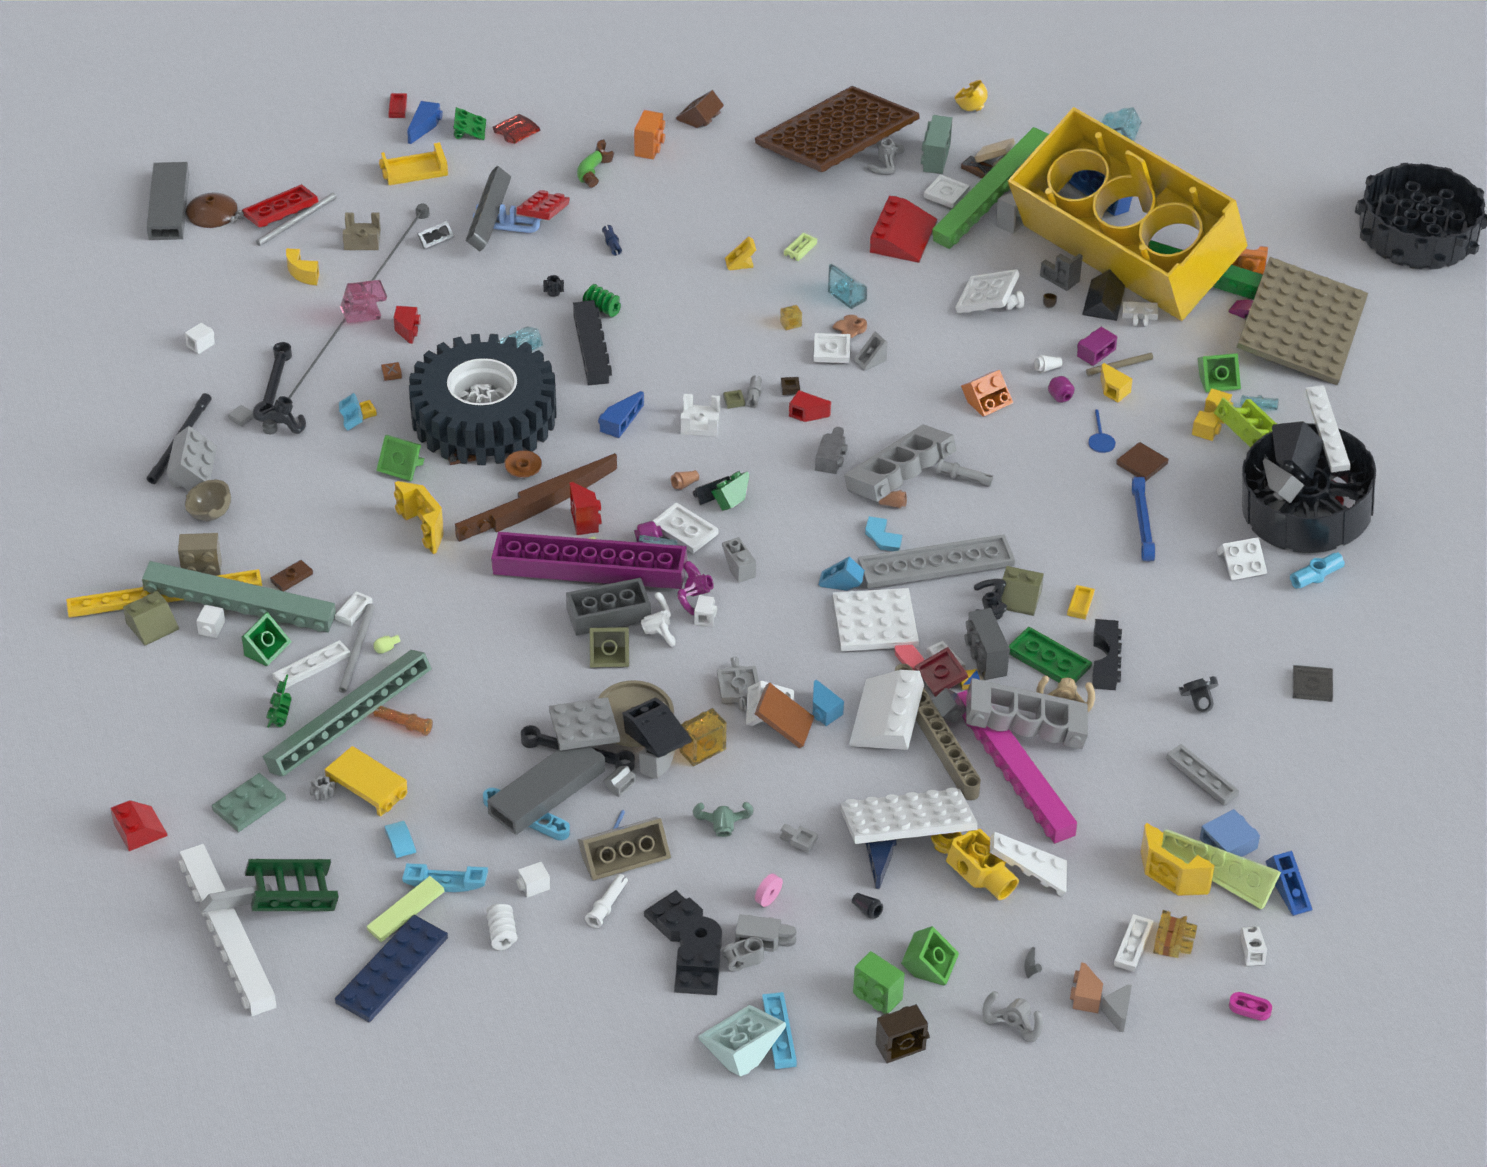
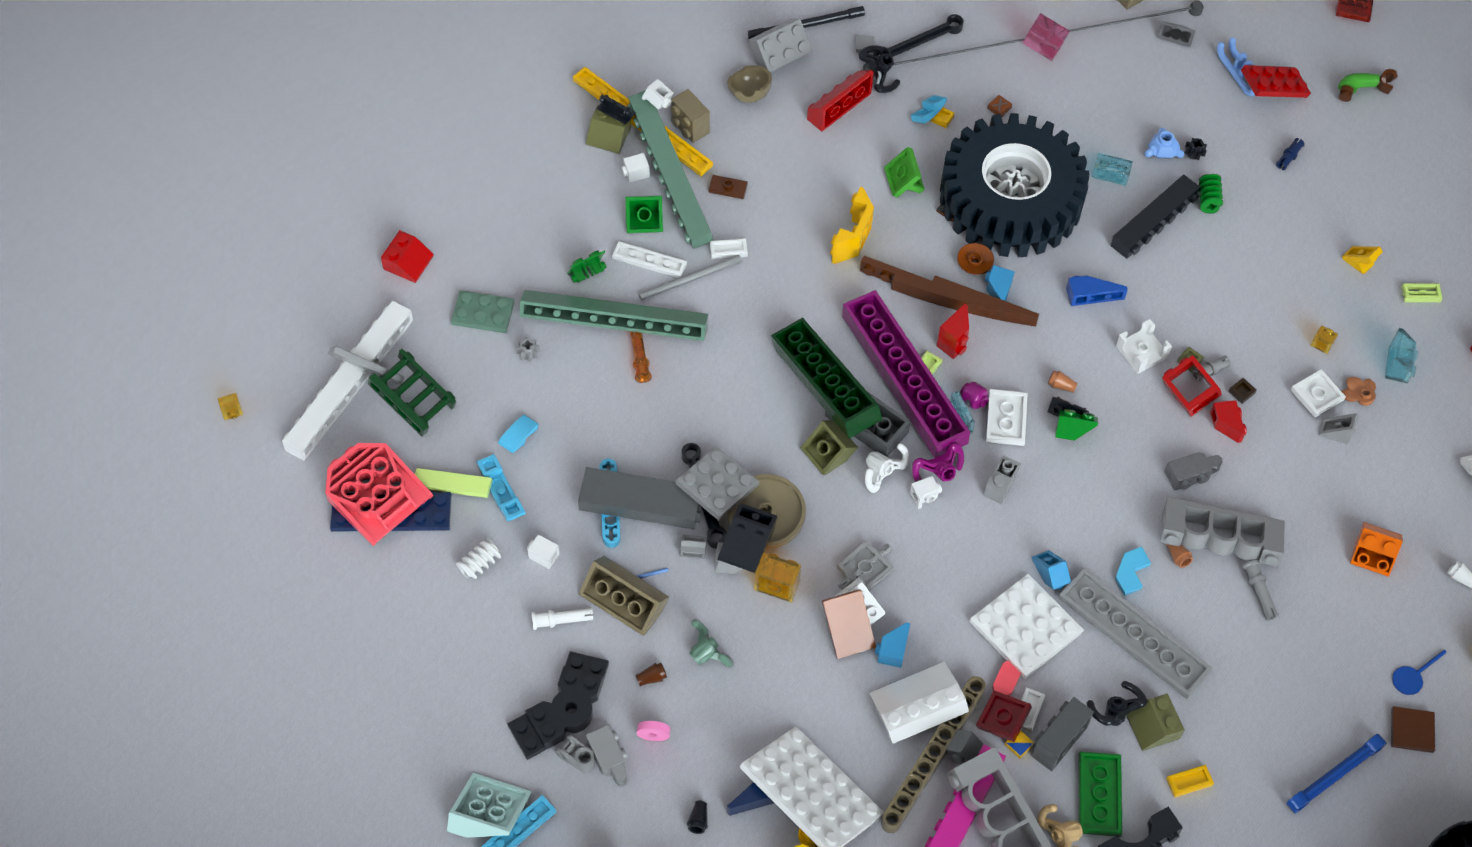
camera: 55 degrees right, 15 degrees up
(140, 594) = (615, 110): none -> black hinge
(167, 553) = (658, 94): none -> white brick
(169, 1029) = (230, 406): none -> clear yellow plate
(282, 456) = (840, 99): none -> red slope
(364, 960) = (361, 463): none -> coral hinge
(368, 779) = (556, 373): yellow panel -> none
(385, 643) = (708, 293): yellowish green cylinder -> none
(406, 322) = (1059, 80): red slope -> none
(488, 208) = (1233, 47): dark grey beam -> none
(531, 300) = (1164, 146): none -> light blue rock
(554, 601) = (826, 378): none -> dark green brick
(559, 461) = (999, 282): none -> dark azure slope
(649, 134) = (1436, 97): orange brick -> none
(714, 866) = (652, 674): none -> reddish brown cone
(756, 421) = (1201, 400): none -> red window
(800, 838) = (733, 721): light grey plate -> none
(1061, 389) = (1438, 605): magenta head -> none

